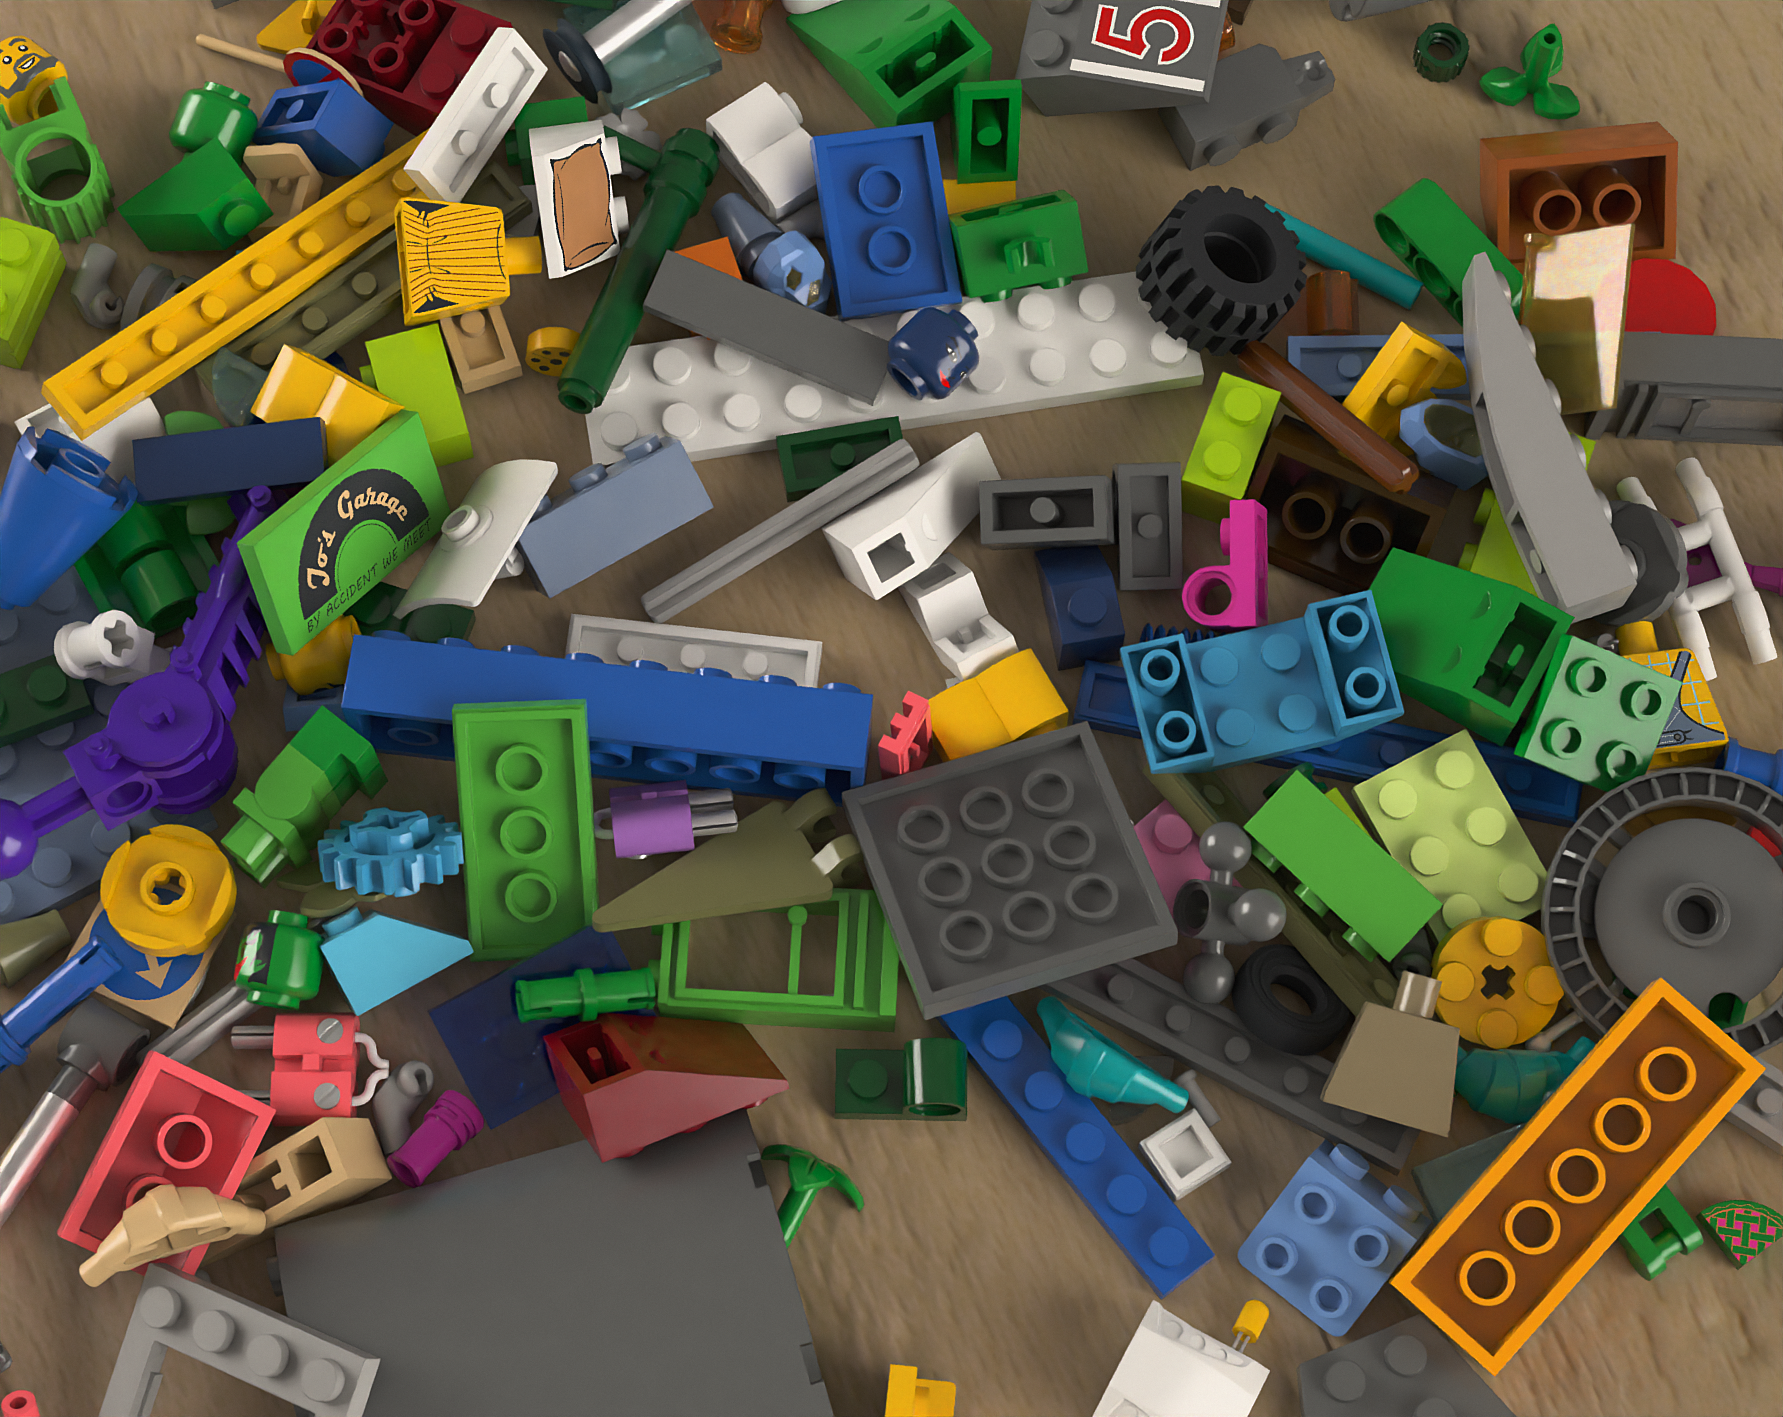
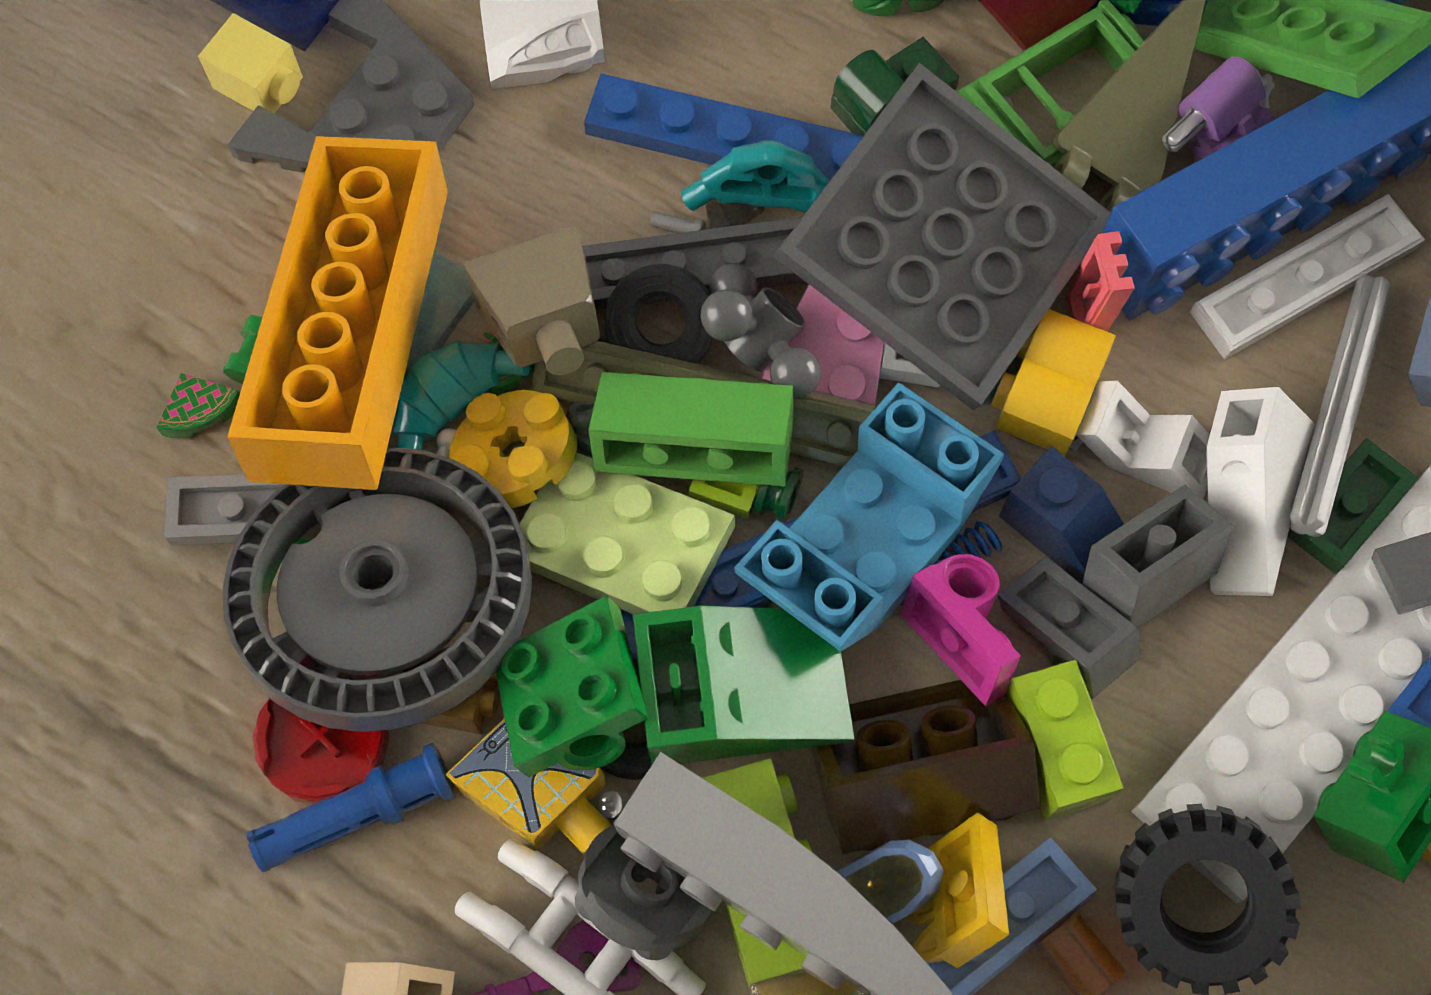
camera: 145 degrees right, 0 degrees up
(933, 353) = (1369, 616): dark blue head -> none
(1184, 1154) = (657, 180): white tile -> none
(1250, 1323) = (527, 106): yellow piece -> none
(1329, 418) = (1000, 812): reddish brown axle -> none
(1333, 1237) = (501, 191): medium blue bracket -> none

